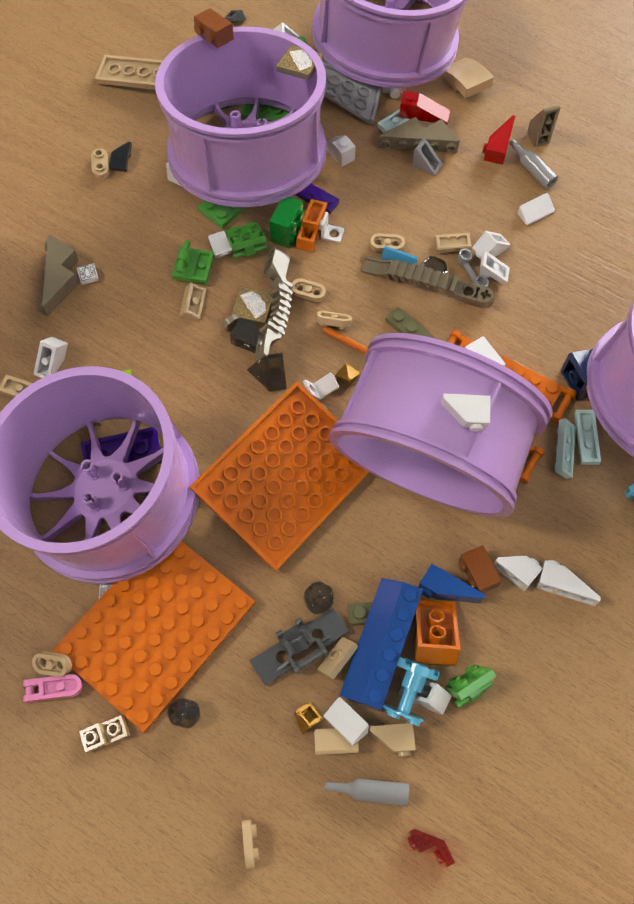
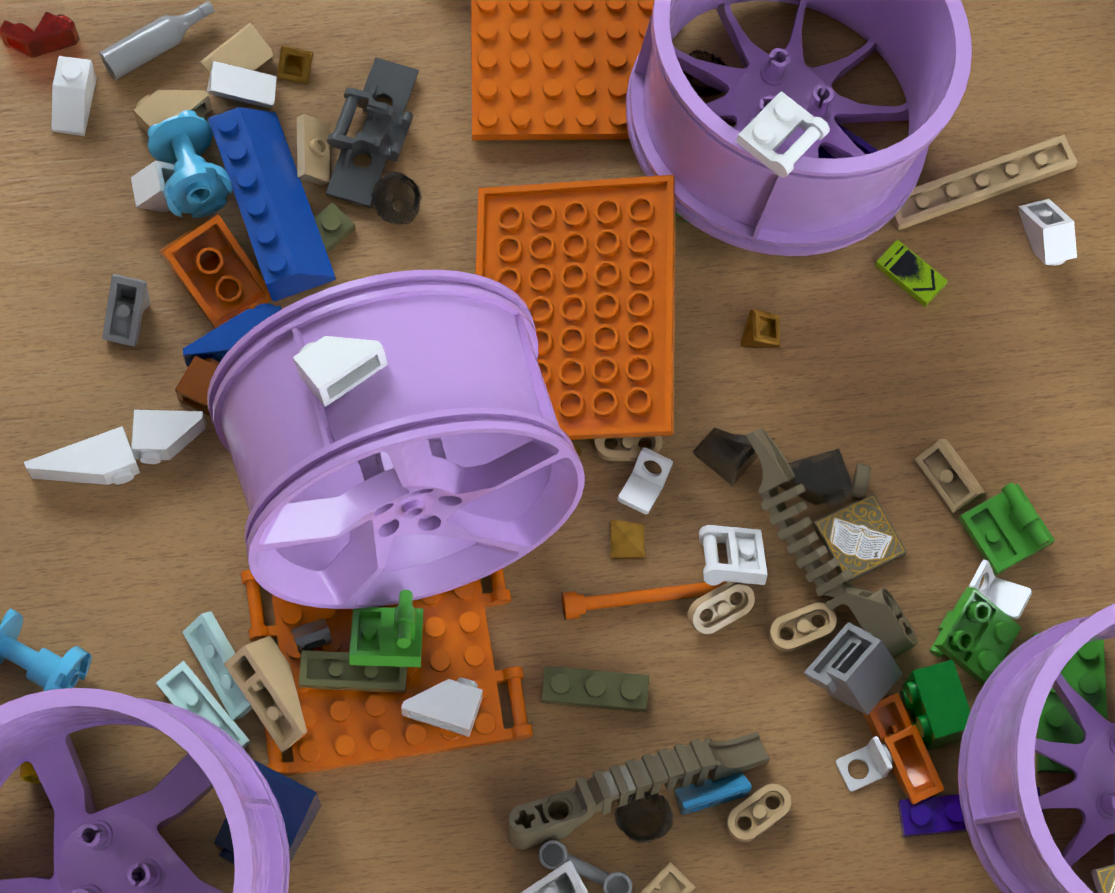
camera: 135 degrees right, 5 degrees up
(145, 415) = (774, 126): none -> white plate
(210, 412) = (761, 330): none -> pearl gold slope
(305, 256) = (855, 669): none -> light grey plate
(307, 327) = (744, 555): none -> white plate
(439, 792) = (72, 95): none -> white slope
(470, 684) = (123, 234): bright green plate -> none
(496, 643) = (125, 310): none -> light grey slope
(557, 428) = (270, 689): none -> tan slope

